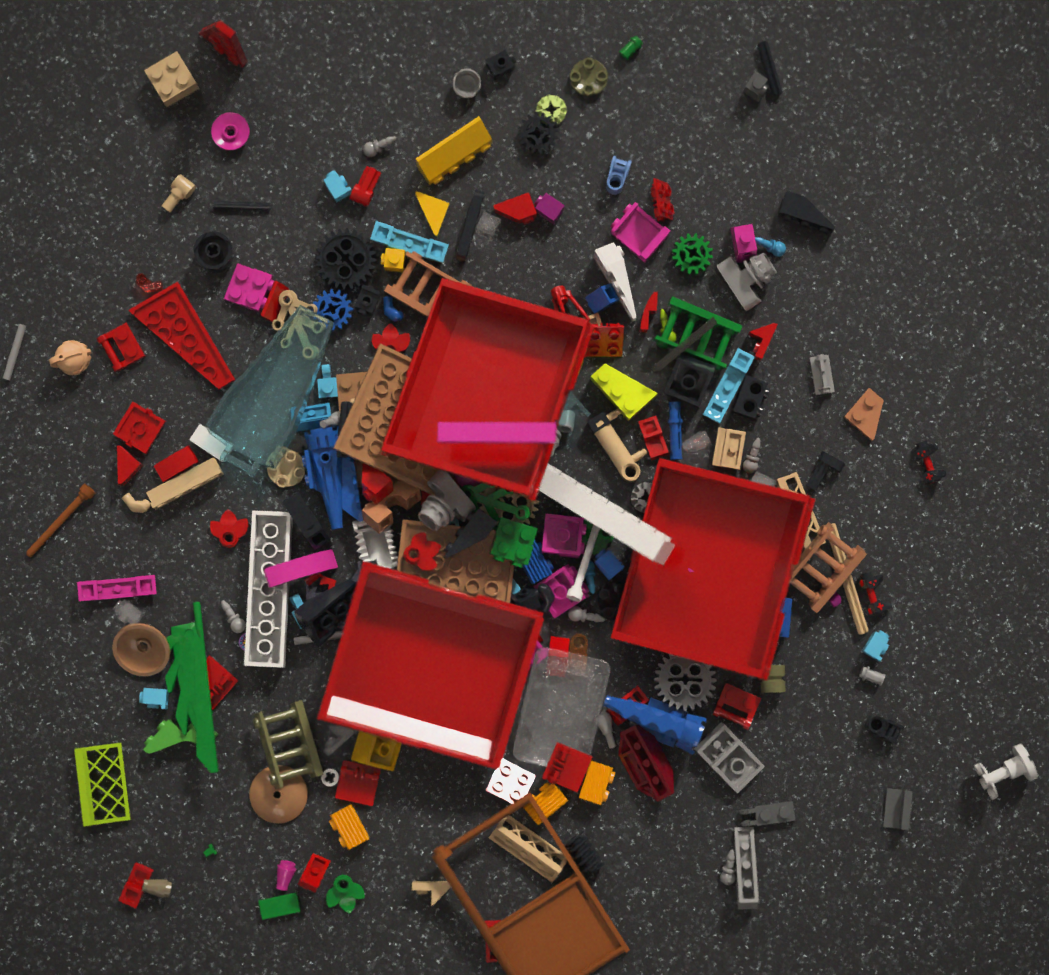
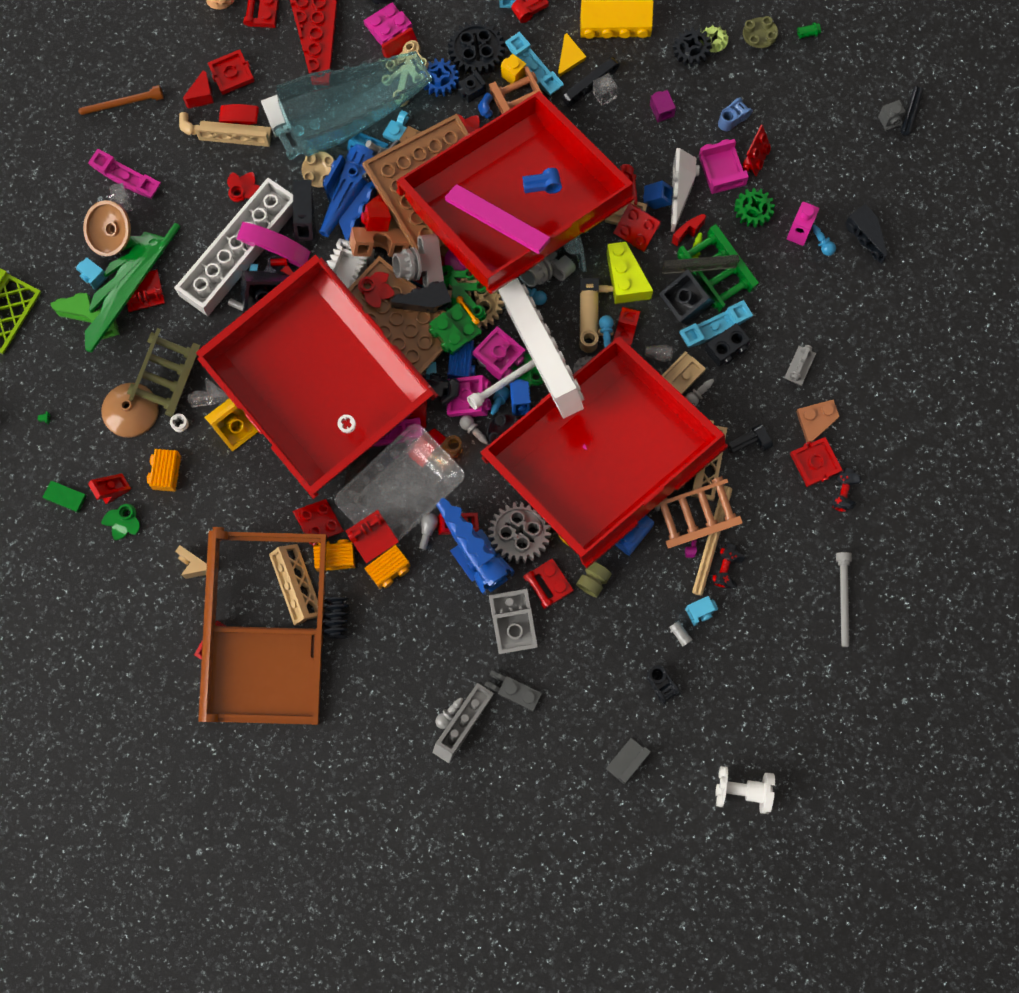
camera: 40 degrees right, 10 degrees down
(237, 624) = (195, 254): light grey bar -> none
(285, 873) = (87, 473): dark pink cone -> none
(357, 783) = (197, 441): red hinge -> none
(484, 697) = (341, 426): none -> white bush
(516, 369) = (547, 181): none -> blue piece
(517, 209) = (636, 91): red slope -> none
(527, 523) = (459, 299): none -> light orange hinge
(560, 460) = (538, 296): none -> dark azure bar
(637, 449) = (606, 324): none -> dark azure bar
(646, 763) = (440, 576): dark red wedge -> none
(675, 430) = (651, 327): blue pin -> none
(740, 281) = (784, 251): light grey beam -> none
(763, 334) = (771, 304): red slope -> none
(889, 453) = (816, 462): none -> red plate
(965, 525) = (844, 560): none -> light grey piece

